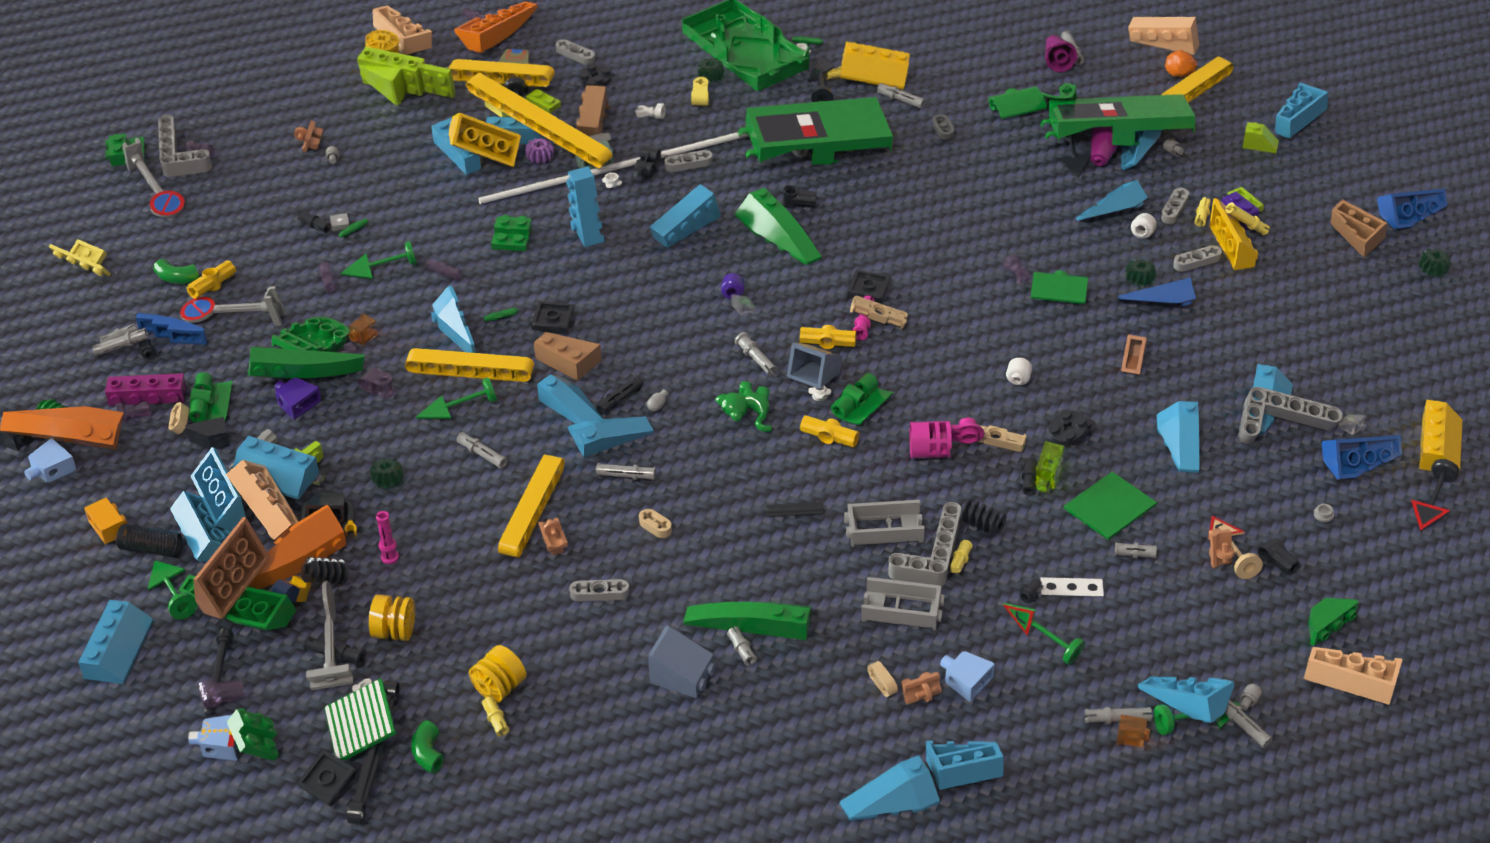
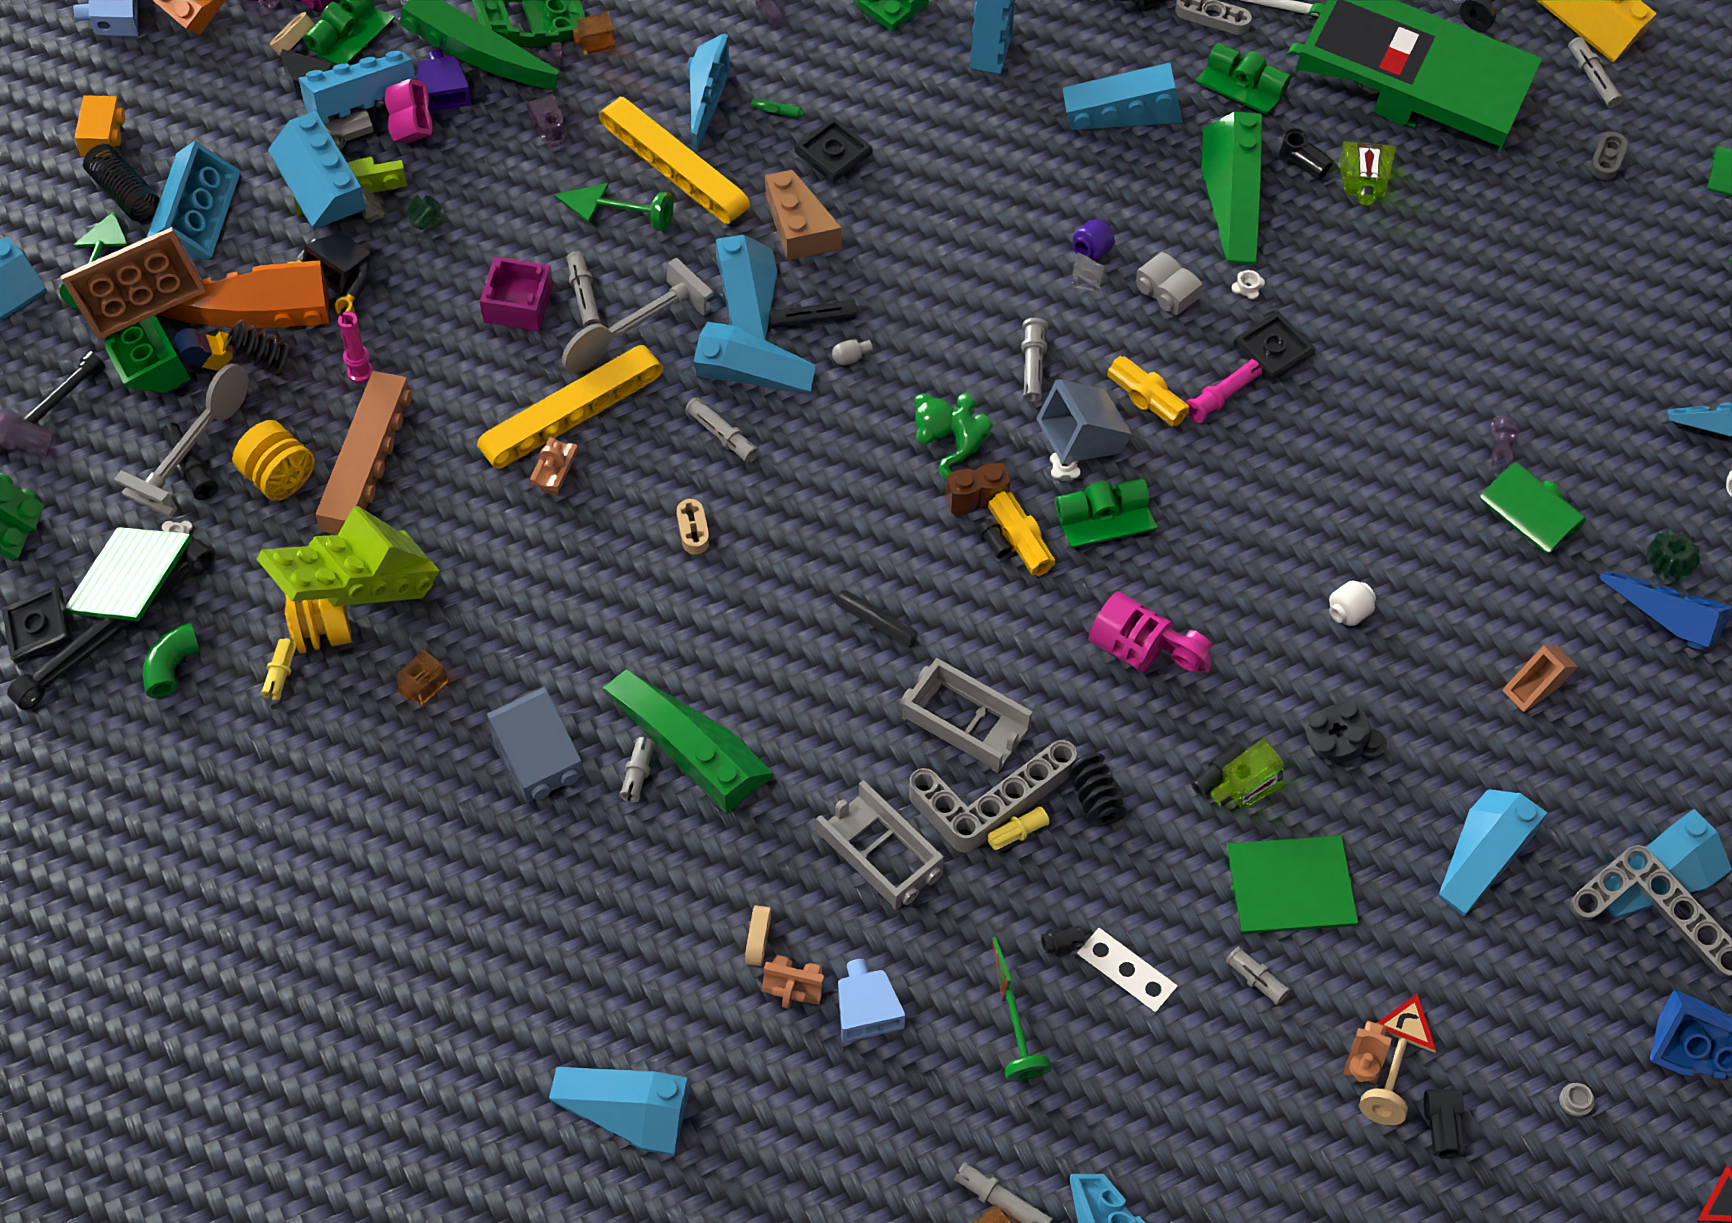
camera: 35 degrees right, 15 degrees up
(218, 492) = (239, 166): dark azure slope -> none
(250, 418) = (354, 84): none -> dark azure wedge
(263, 497) = (268, 204): light nougat wedge -> none
(294, 416) = (408, 111): none -> dark pink brick
(352, 460) = (424, 212): none -> clear green gear
(386, 472) = (448, 253): clear green gear -> none
(437, 590) = (364, 450): none -> nougat brick
(447, 469) = (516, 293): none -> magenta container
(506, 623) = (355, 567): none -> lime wedge
(538, 418) = (592, 341): none -> light grey piece
(581, 679) = (428, 684): none -> clear orange window
(614, 594) = (552, 588): light grey beam -> none
(733, 179) = (1244, 78): none -> green panel
(787, 423) = (975, 488): none -> reddish brown brick
(790, 285) = (1168, 283): none -> light grey brick
(817, 441) = (995, 539): none -> black pin
(828, 267) = (1248, 278): none -> white plate
(835, 189) = (1366, 169): none -> clear neon green torso
(889, 314) = (1232, 379): tan piece -> none
(963, 764) = (738, 1126): dark azure wedge -> none
(1007, 439) = (1244, 697): tan piece -> none

